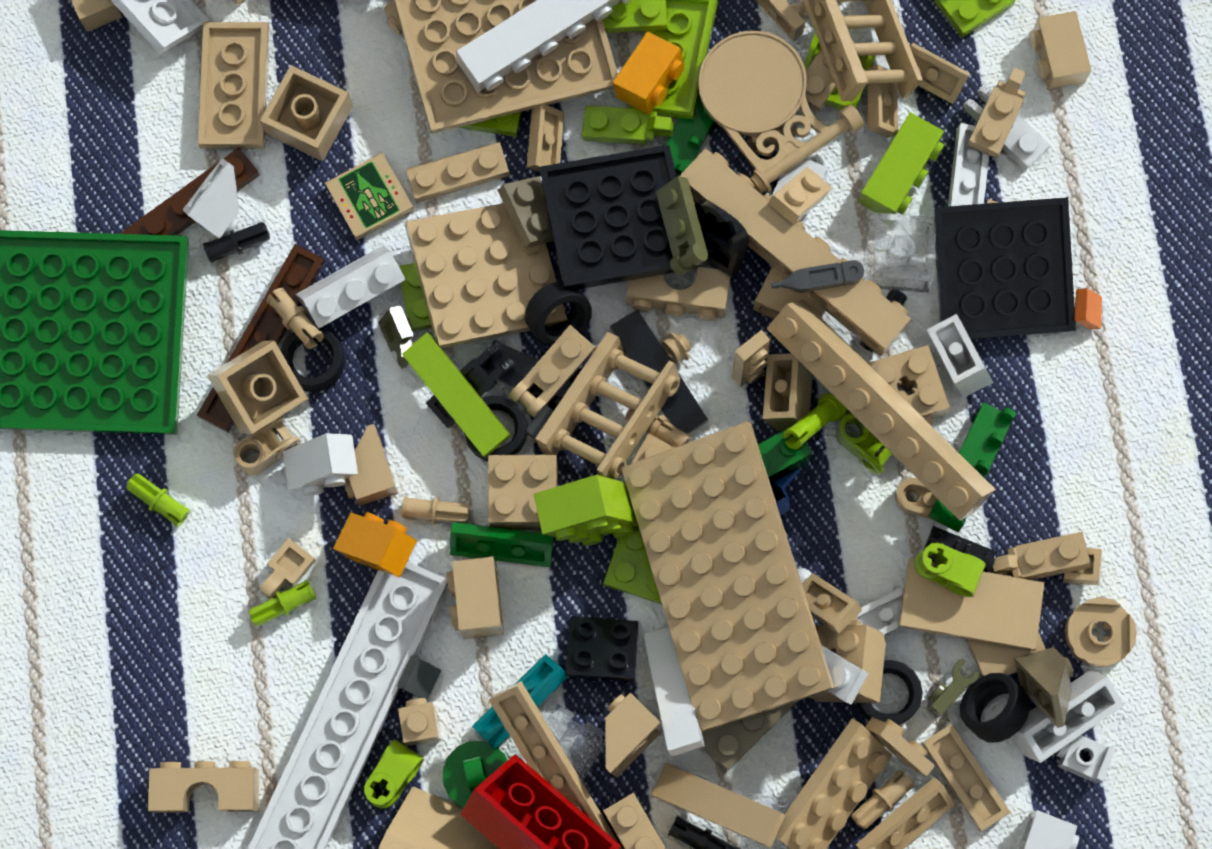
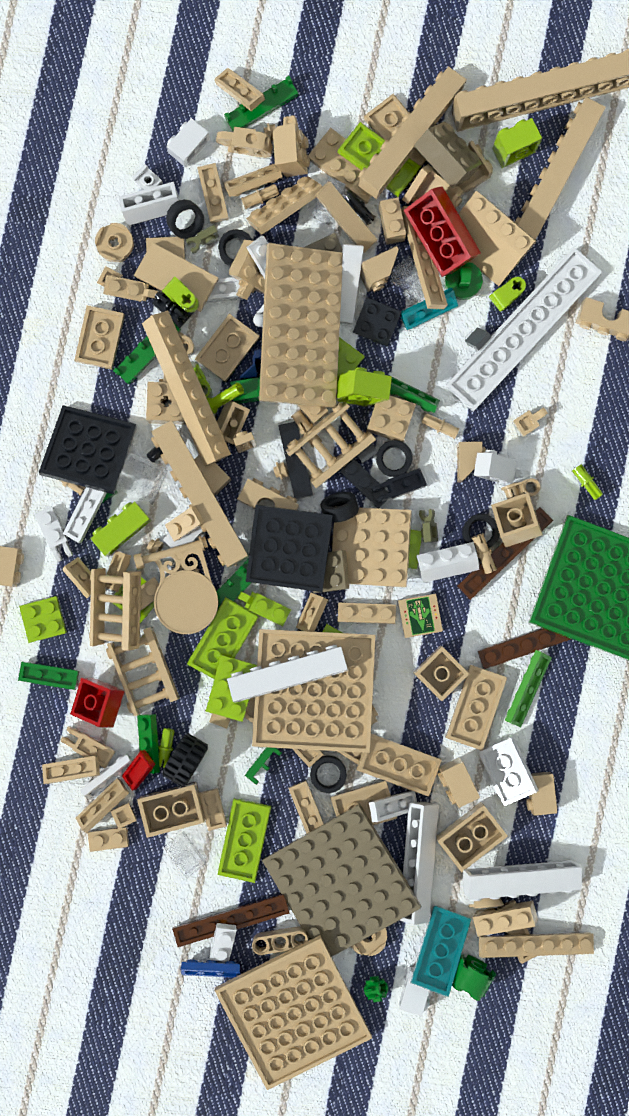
camera: 160 degrees left, 10 degrees up
(158, 139) = (528, 688): none -> bright green plate
(216, 201) = (508, 637): white slope -> none
(236, 241) = (502, 613): black axle -> none
(282, 603) = (537, 403): lime axle -> none
(375, 543) = (479, 414): light orange brick -> none
(419, 722) = (485, 314): tan brick -> none
(456, 395) = (410, 480): lime tile -> none
(477, 598) = (434, 365): tan brick -> none
(553, 370) = (352, 476): tan plate -> none
(649, 73) = (241, 628): light orange brick -> none
(681, 225) = (256, 525): olive plate -> none
(723, 236) = (239, 517): black slope -> none
(823, 277) = (190, 469): dark grey piece -> none
(829, 604) = (252, 296): tan plate -> none
(836, 159) = (155, 546): none -> tan plate
(840, 518) = (227, 348): none -> tan plate
(910, 753) = (238, 213): tan plate -> none
(959, 356) = (130, 411): white slope -> none
(998, 115) = (56, 538): tan hinge -> none
(1047, 682) = (153, 221): dark tan slope -> none
(1060, 462) = (99, 337): none -> tan plate
(1088, 308) = (51, 414): orange tile -> none

